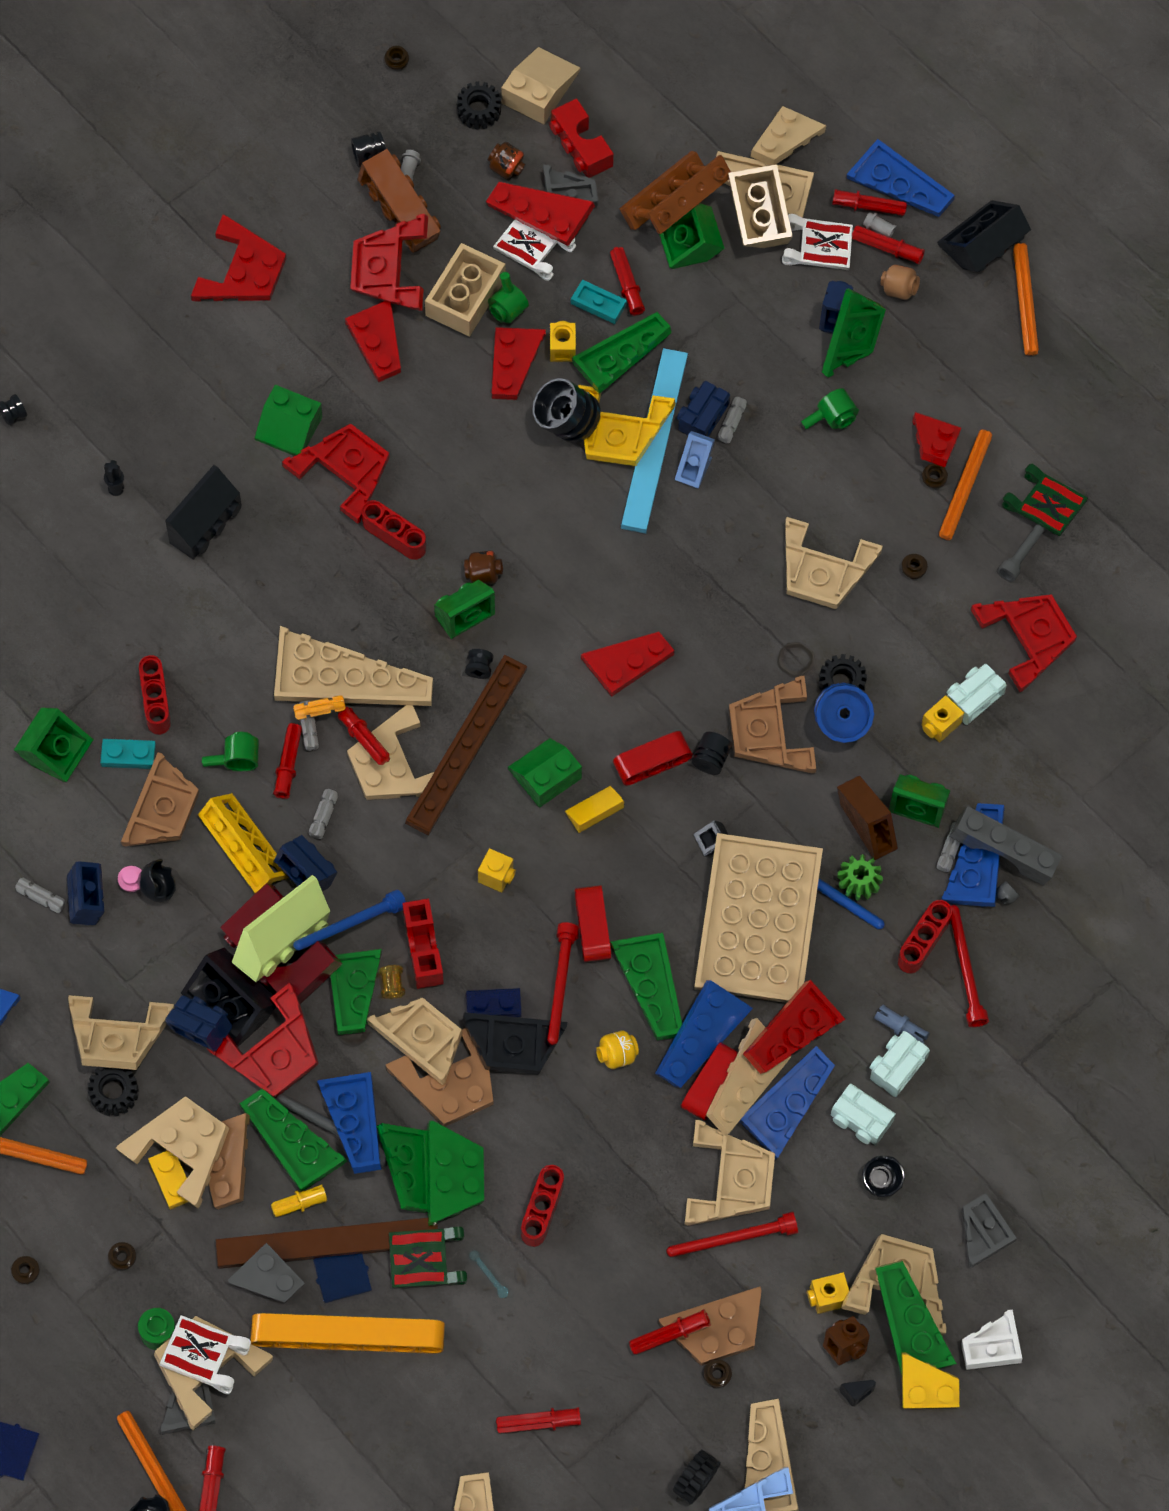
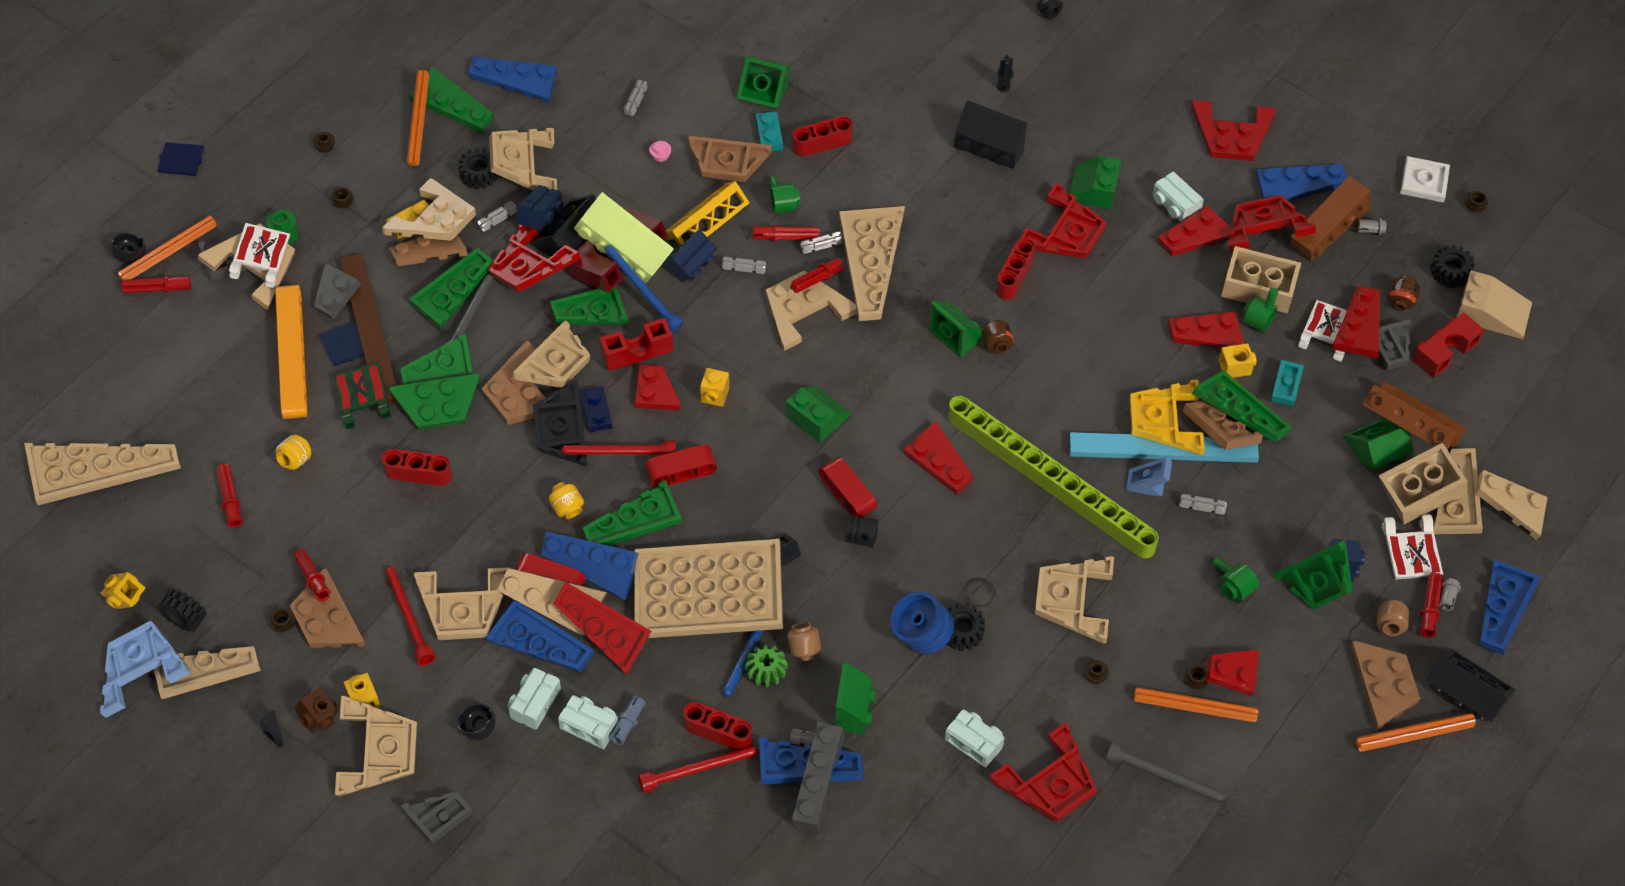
camera: 80 degrees right, 10 degrees down
(85, 893) = (637, 118): dark blue brick -> none
(157, 881) = (658, 163): black hair -> none
(190, 1078) = (497, 216): none -> light grey axle
(299, 1201) = (401, 302): yellow axle -> none
(319, 707) = (834, 240): light orange axle -> none
(329, 222) = (1300, 180): none -> blue wing
(329, 344) = (1177, 197): none -> light aqua brick
(352, 98) = (1425, 179): none -> white tile
(354, 1116) = (479, 323): blue wing -> none
(367, 146) = (1380, 194): black piece -> none
(392, 981) = (600, 331): clear yellow bush -> none
(466, 745) = (829, 351): reddish brown tile -> none
(478, 937) = (655, 389): none -> red wing
(479, 663) = (906, 347): black wheel -> none
(497, 1341) = (293, 452): none -> yellow head
(502, 1290) = (341, 455): clear light blue hinge -> none
(566, 410) = (1162, 364): black wheel -> none
(595, 809) = (791, 454): yellow slope -> none
(630, 290) = (1308, 406): red axle -> none
(650, 376) = (1221, 430): none -> medium nougat wing
(670, 565) = (1057, 485): none -> lime beam
(704, 410) = (1202, 477): dark blue brick -> none
(760, 731) = (899, 566): medium nougat wing -> none
(840, 833) = (804, 641): none -> medium nougat head
(857, 200) = (1469, 573): red axle -> none
(868, 816) = (824, 662): reddish brown slope -> none
(910, 1319) = (331, 760): green wing -> none
(927, 1386) = (282, 784): yellow wing -> none
(942, 719) = (940, 711): yellow brick -> none
(966, 309) = (1385, 681): none -> medium nougat wing
(993, 1345) = (328, 836): white wing -> none
(1007, 893) = (777, 793): dark grey hinge -> none
(1048, 503) = (1194, 777): dark green flag -> none

